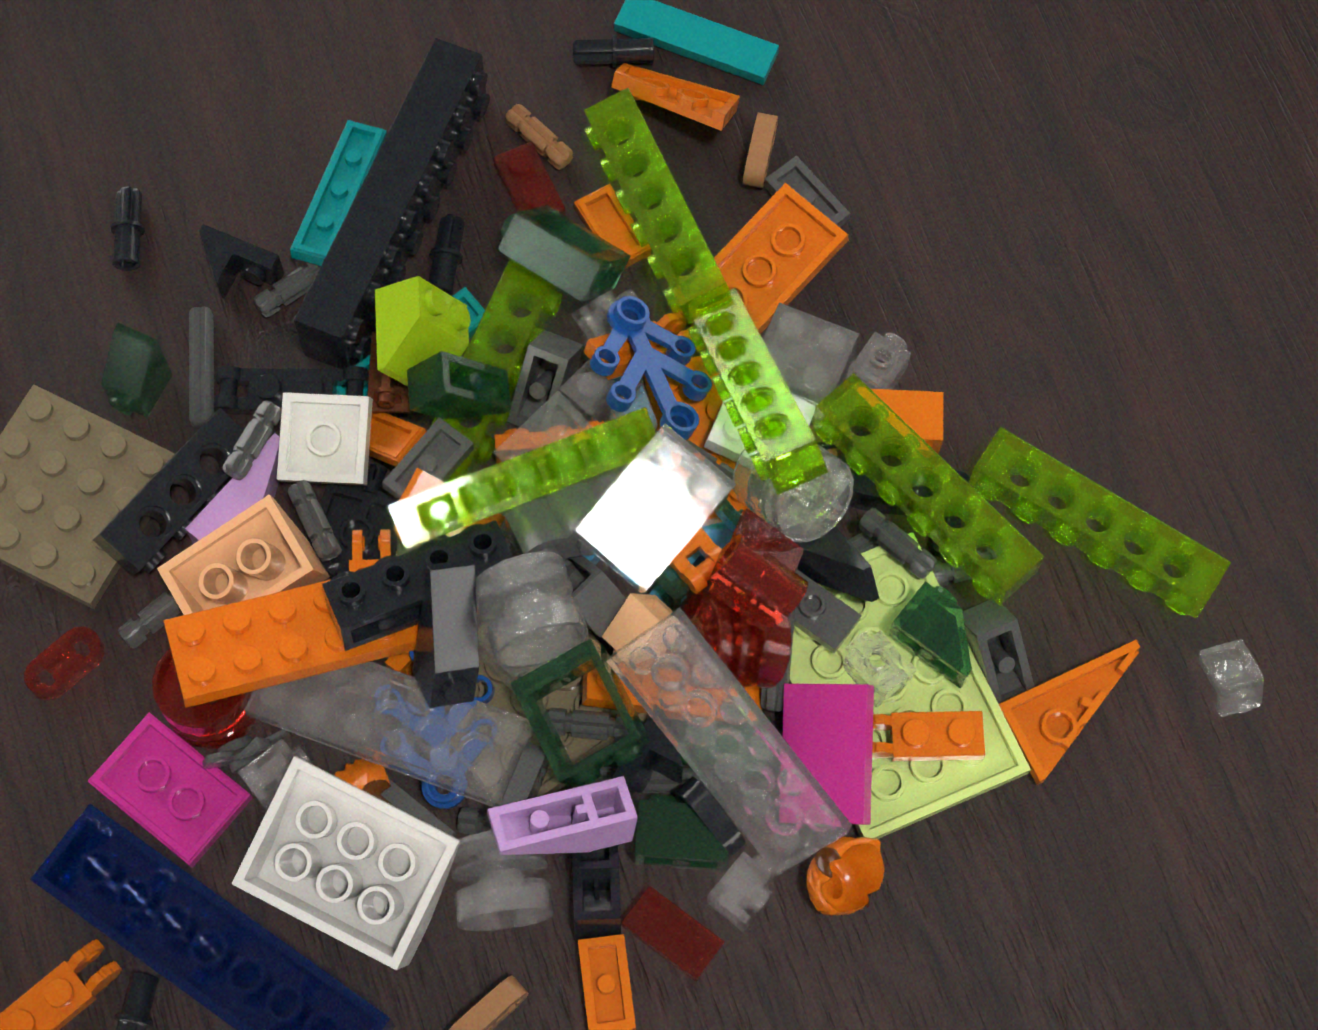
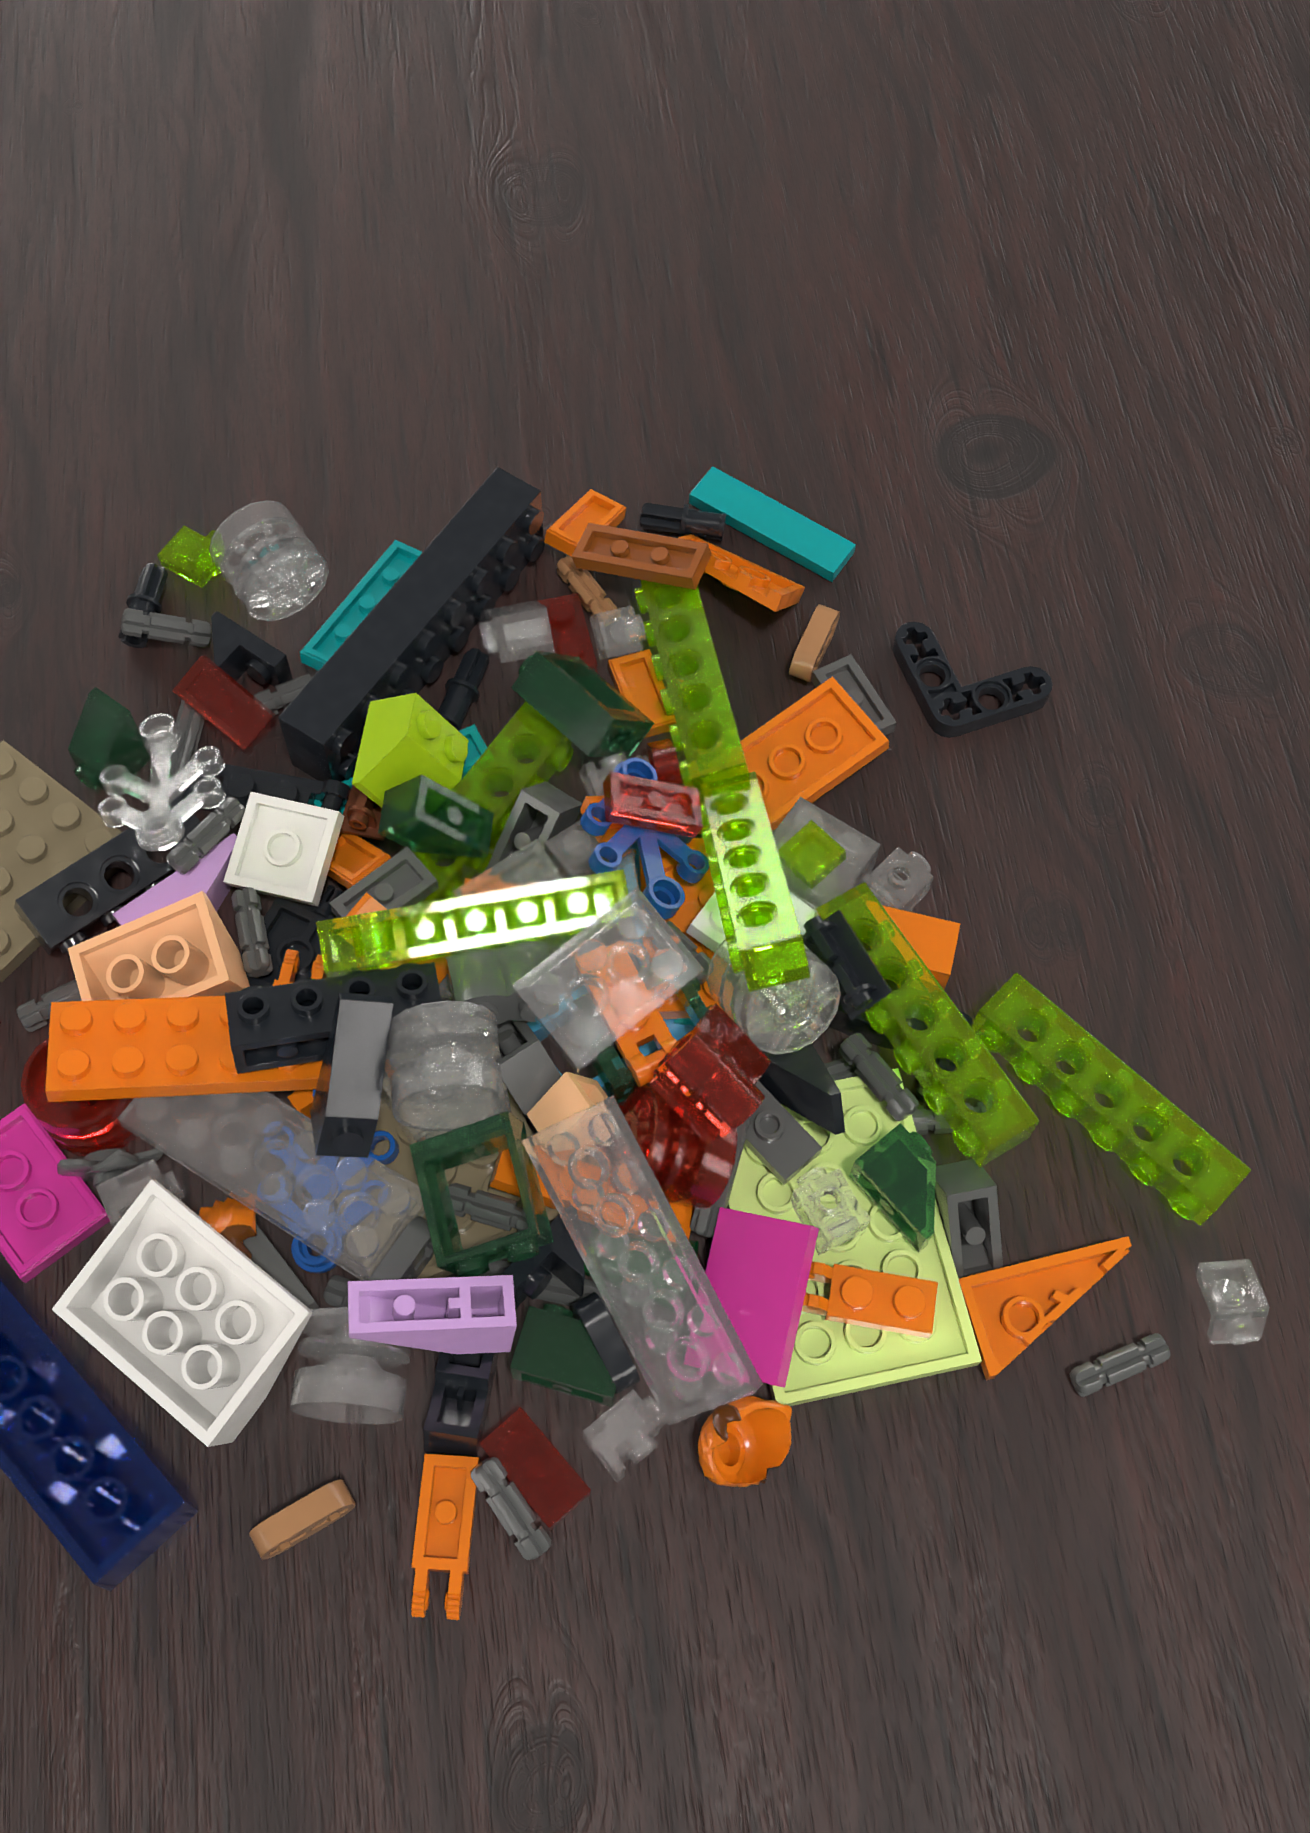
camera: 10 degrees right, 5 degrees down
(156, 248) = (165, 627): none -> dark grey axle
(161, 170) = (189, 556): none -> clear neon green bracket
(211, 441) = (160, 825): none -> clear plant
(231, 311) = (224, 702): none -> clear red plate
(238, 165) = (268, 560): none -> clear wheel
(487, 192) = (516, 631): none -> clear brick
(523, 72) = (589, 509): none -> orange tile
(578, 175) = (618, 632): none -> clear brick
(586, 98) = (642, 555): none -> dark orange plate
(651, 292) = (665, 761): none -> clear red beam
(651, 338) = (652, 804): none -> clear red plate
(660, 969) = (511, 1508): none -> dark grey axle
(802, 356) = (811, 854): none -> clear neon green plate
(849, 443) = (847, 958): none -> black hinge
(895, 176) = (953, 696): none -> black beam
(1147, 749) = (1119, 1364): none -> dark grey axle

